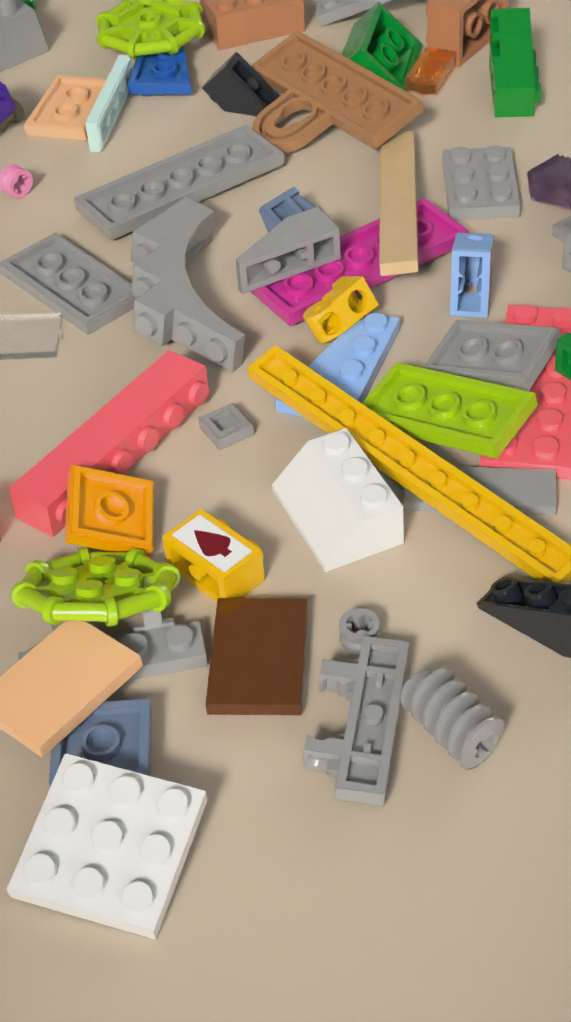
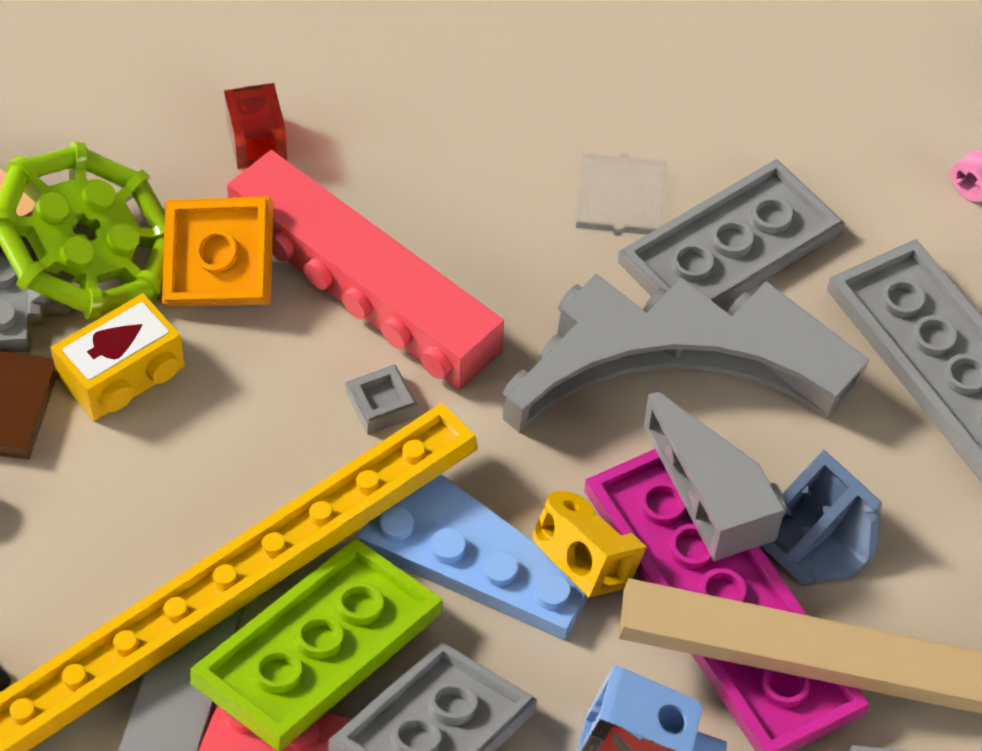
camera: 90 degrees right, 10 degrees up
(339, 501) = (182, 506): white slope -> none

